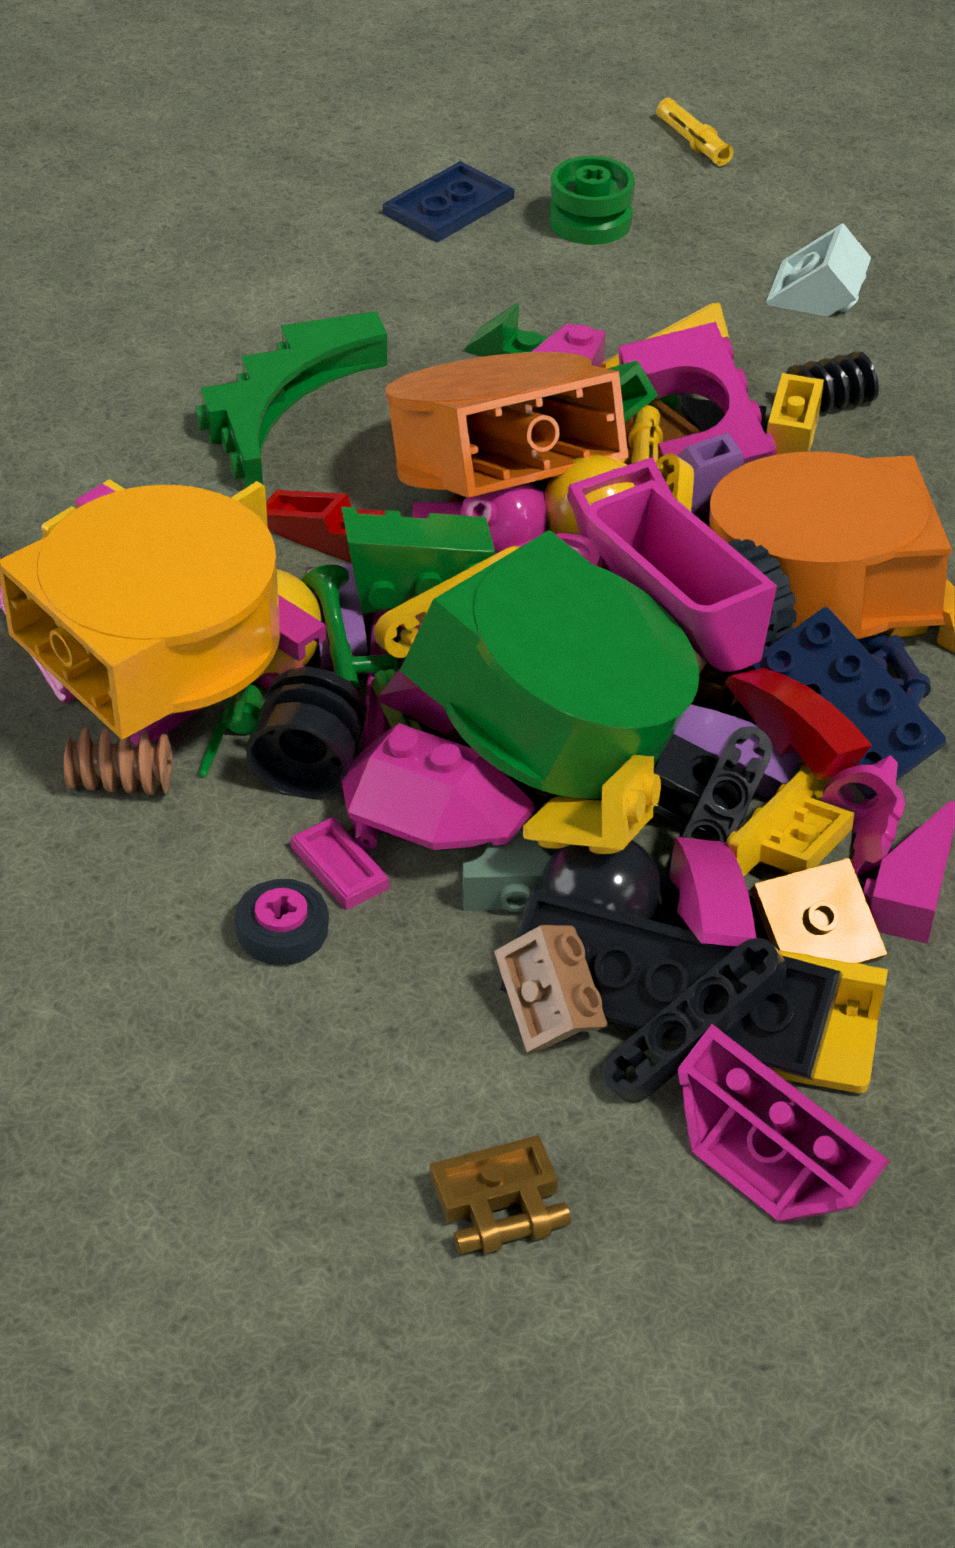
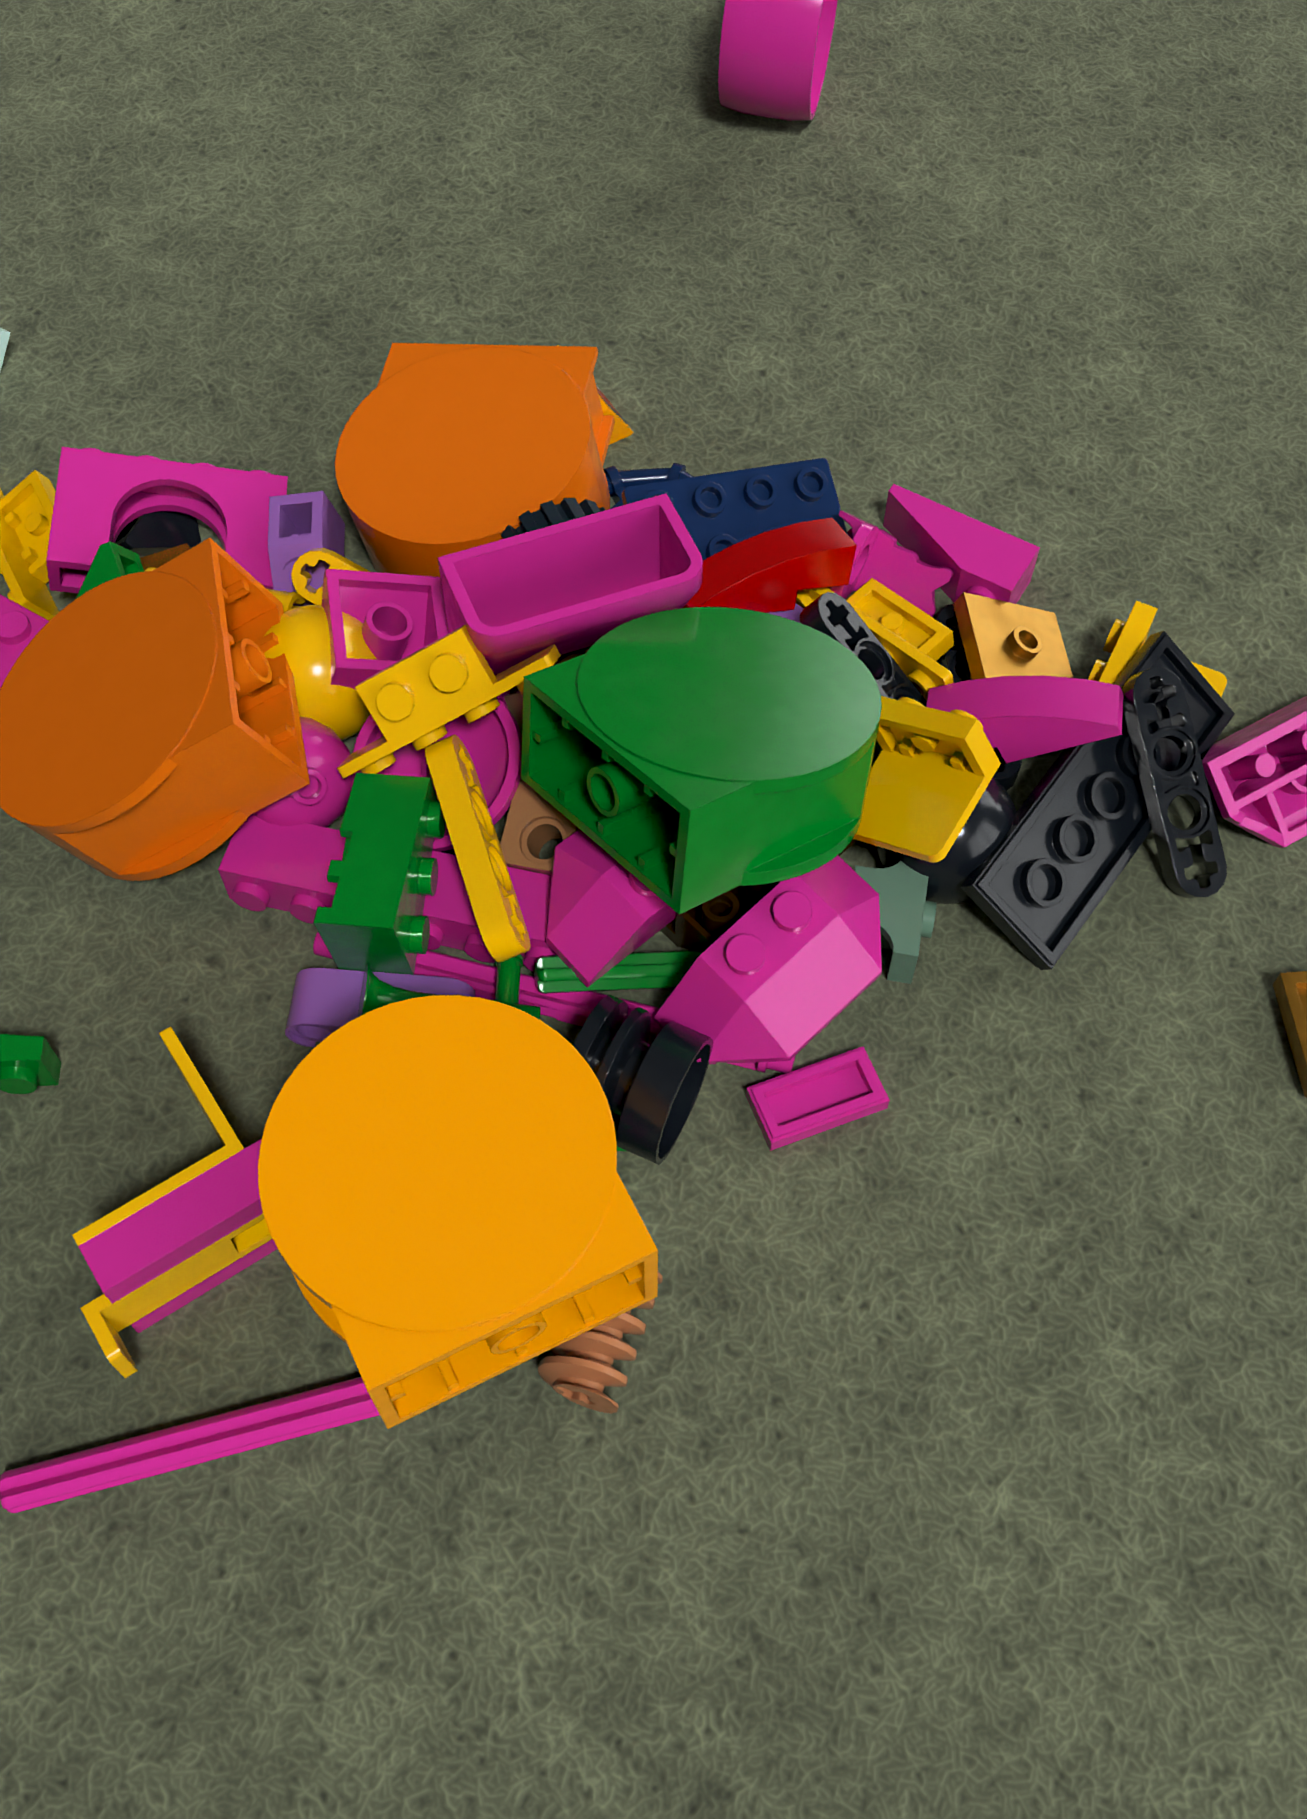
camera: 75 degrees left, 15 degrees up
(287, 939) = (903, 1200): black wheel -> none
(312, 519) = (187, 990): red slope -> none
(550, 986) = (1095, 910): medium nougat bracket -> none
(553, 511) = (430, 689): none -> yellow bracket
(795, 413) = (206, 433): yellow brick -> none
(844, 377) = (154, 401): black piece -> none

